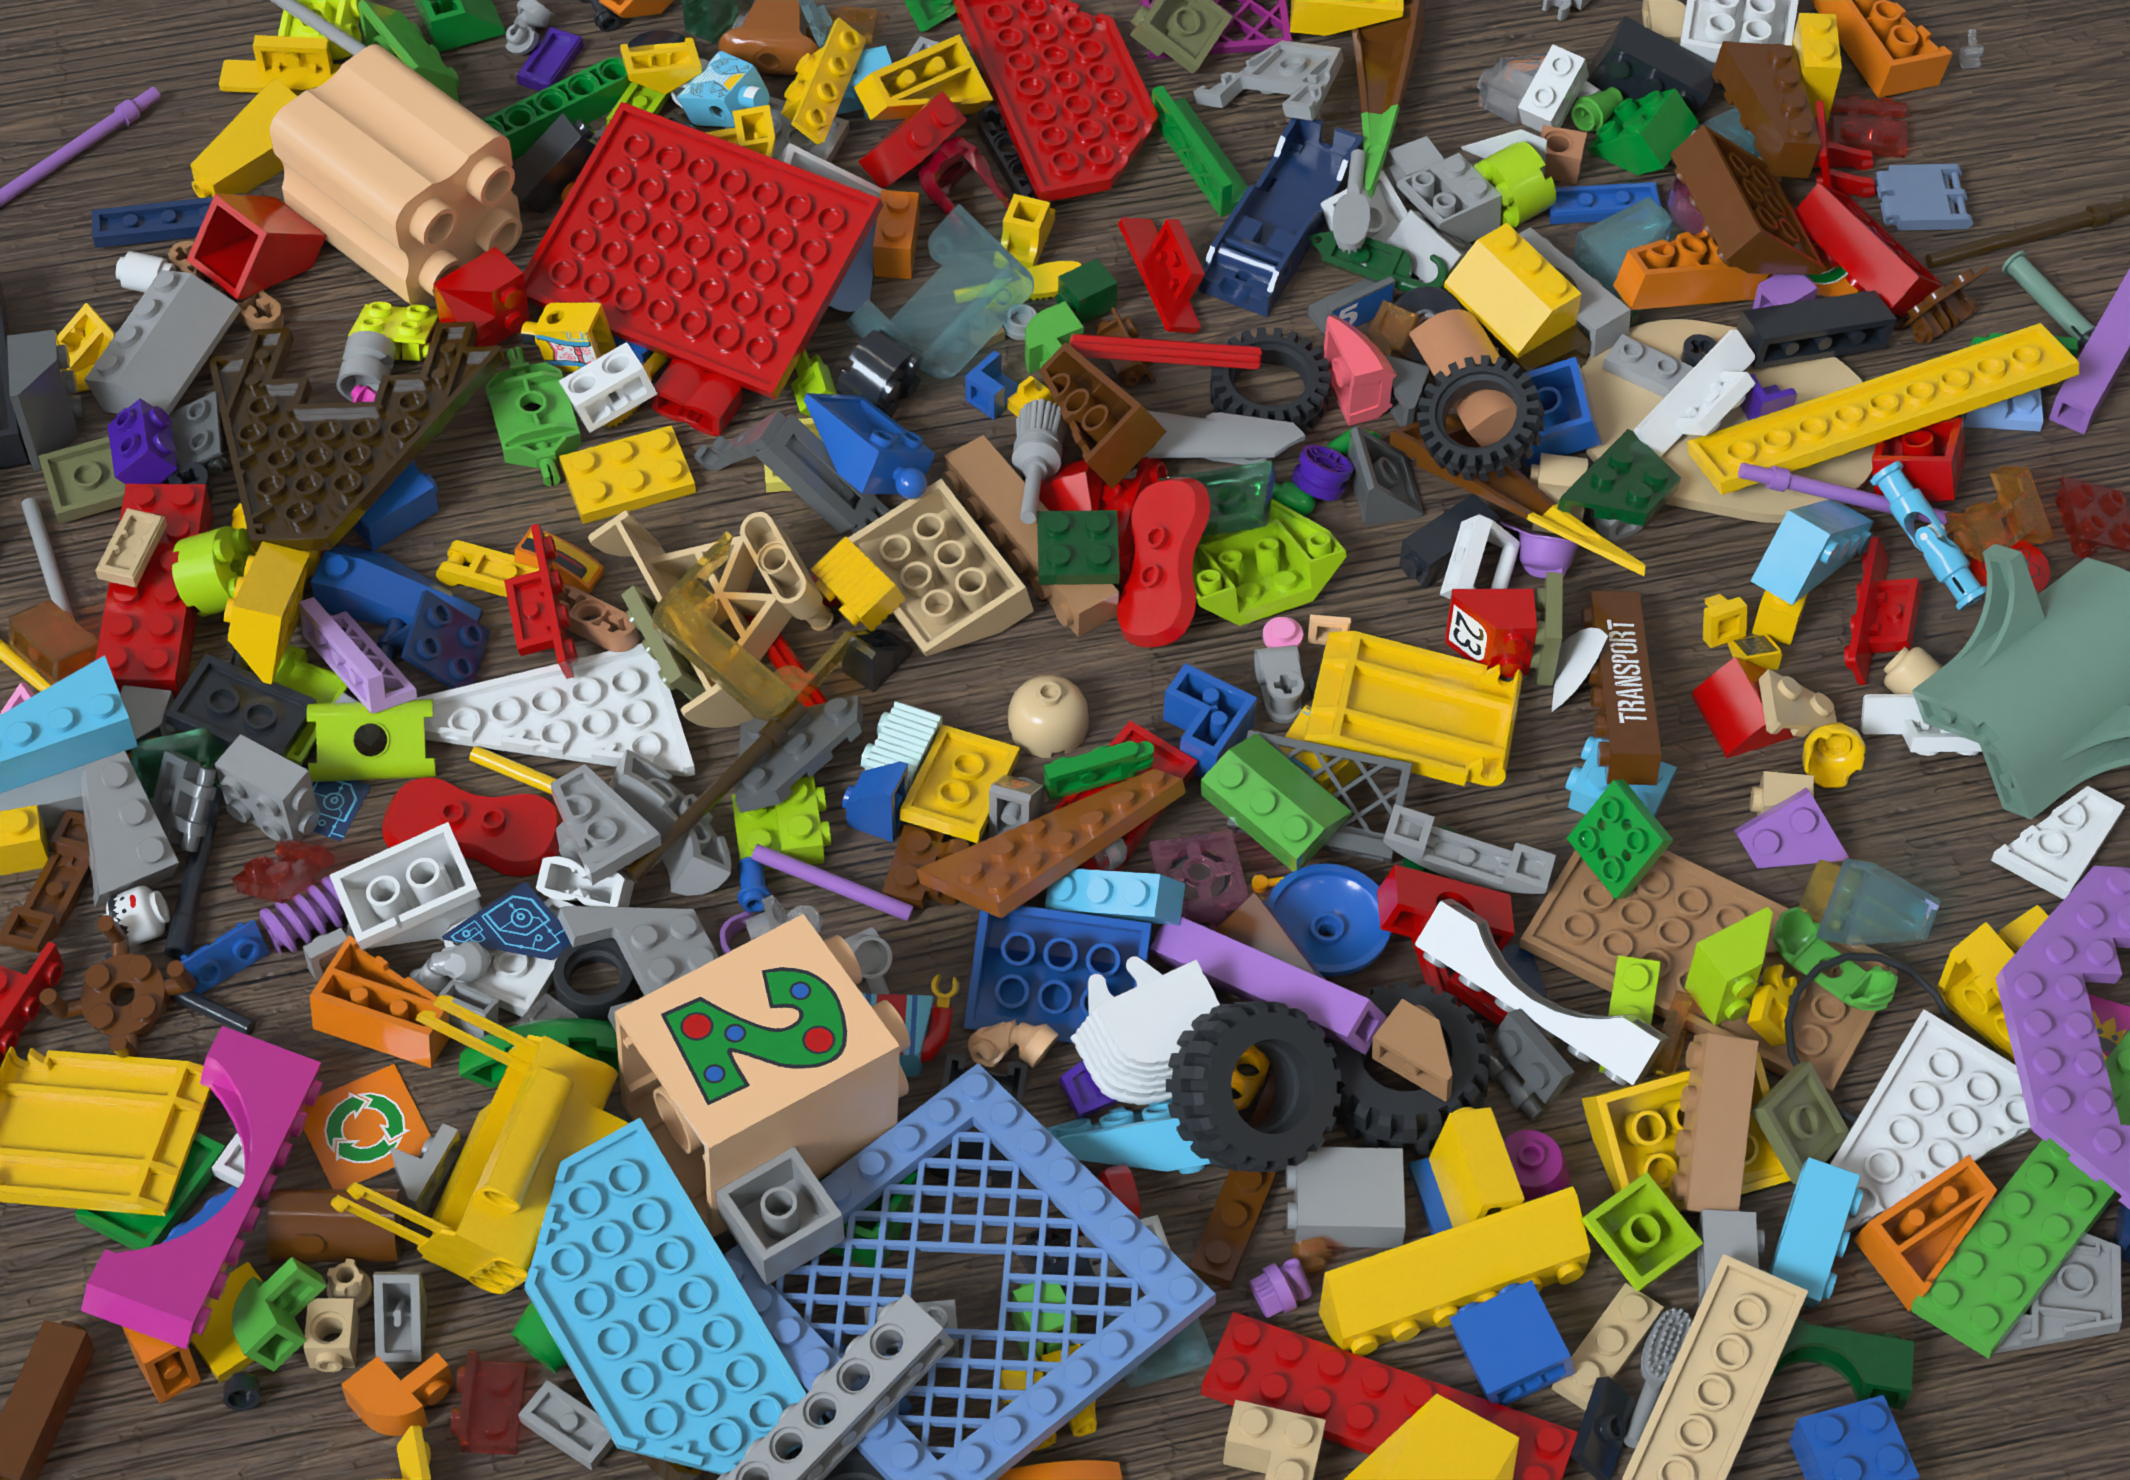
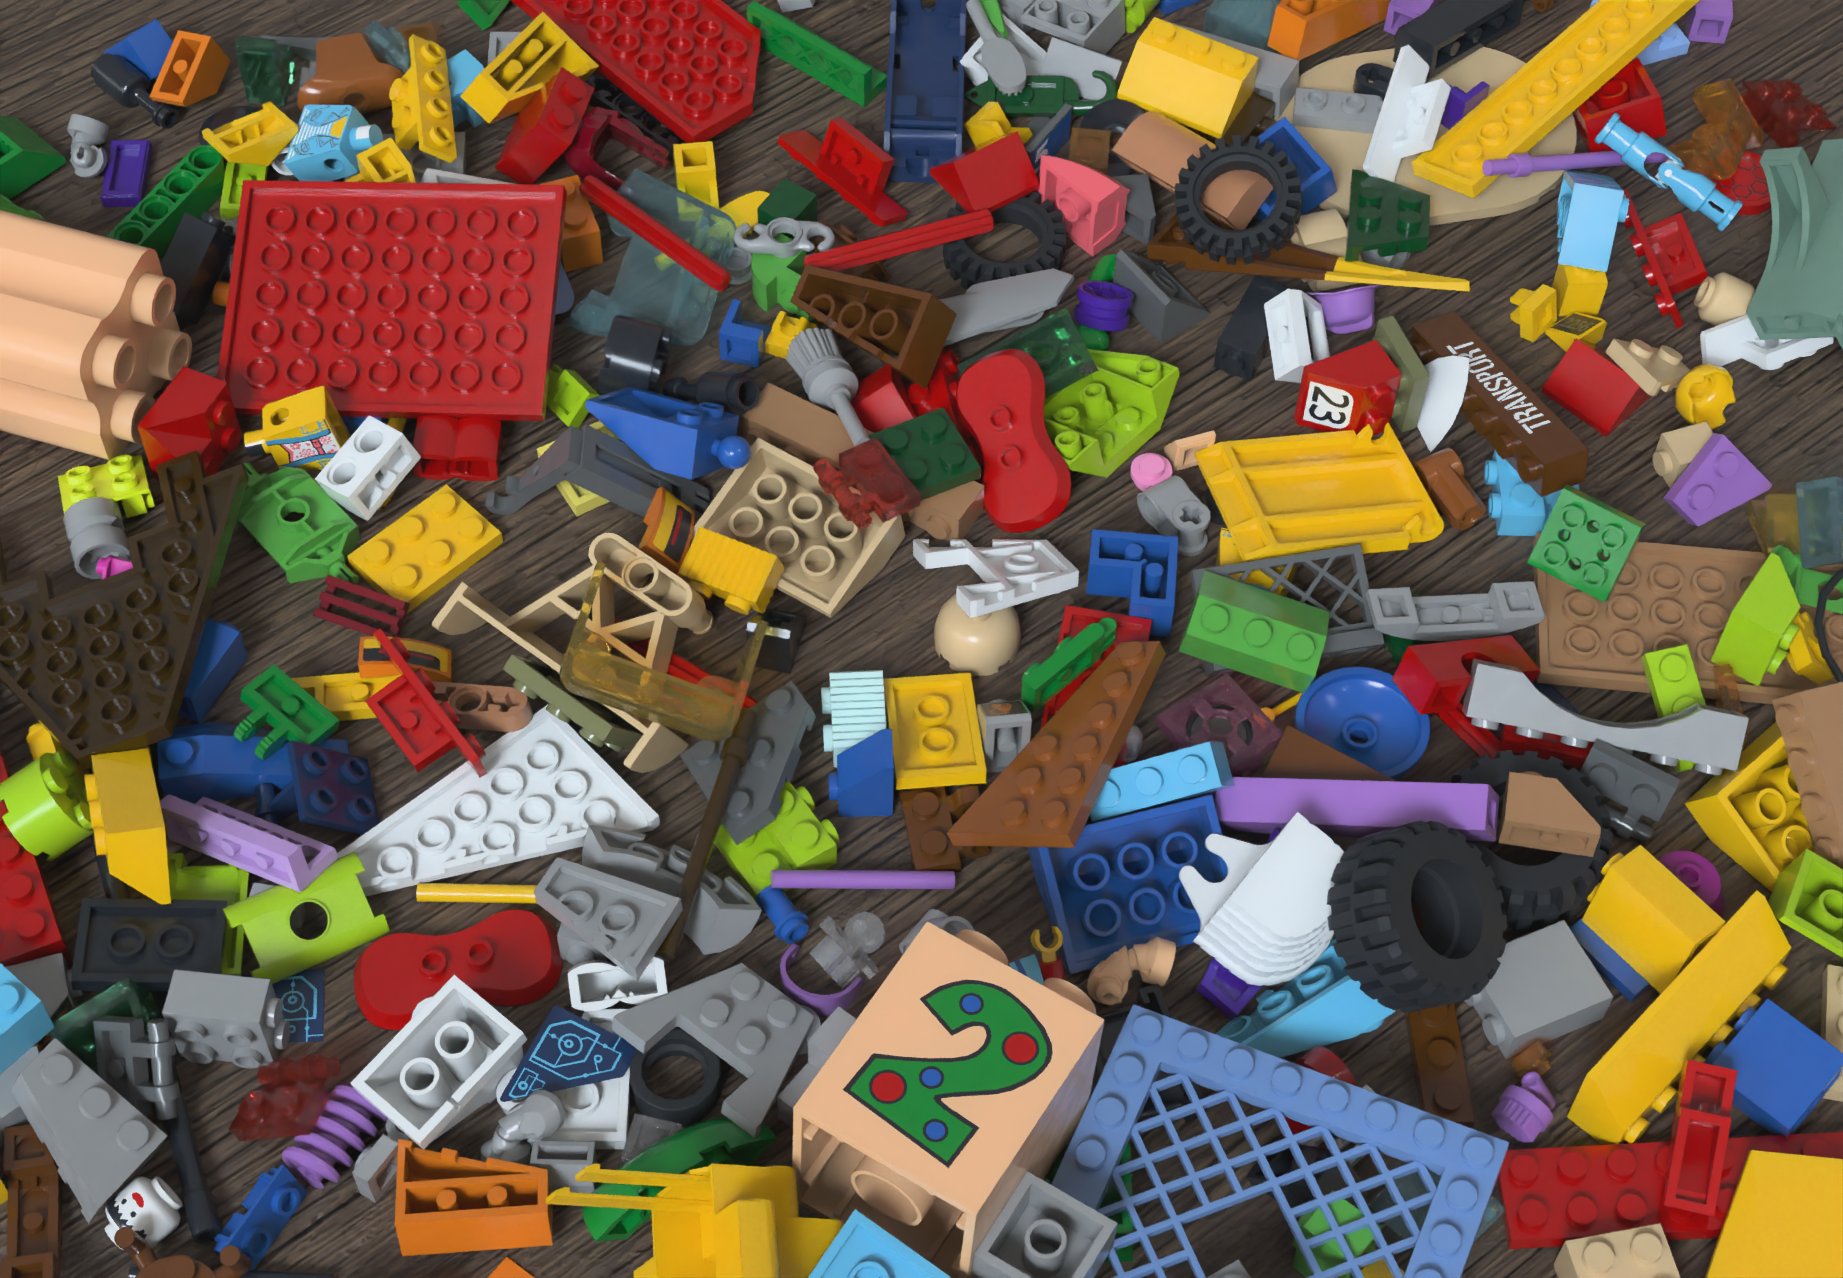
camera: 25 degrees left, 0 degrees up
(440, 564) = (287, 709): none -> green hinge
(527, 487) = (329, 598): none -> dark red tile
(824, 529) = (668, 530): none -> slope
(936, 427) = (730, 389): none -> black piece
(954, 268) = (655, 233): none -> red axle
(1020, 552) = (875, 476): none -> clear red plate
(1047, 311) = (768, 245): none -> light grey piece
(1099, 674) = (1011, 568): none -> white wing
(1281, 318) = (988, 174): none -> red slope
(1318, 280) = (992, 123): none -> yellow panel
(1403, 1367) = (1699, 1137): none -> red slope
(1541, 741) = (1445, 483): none -> dark orange piece

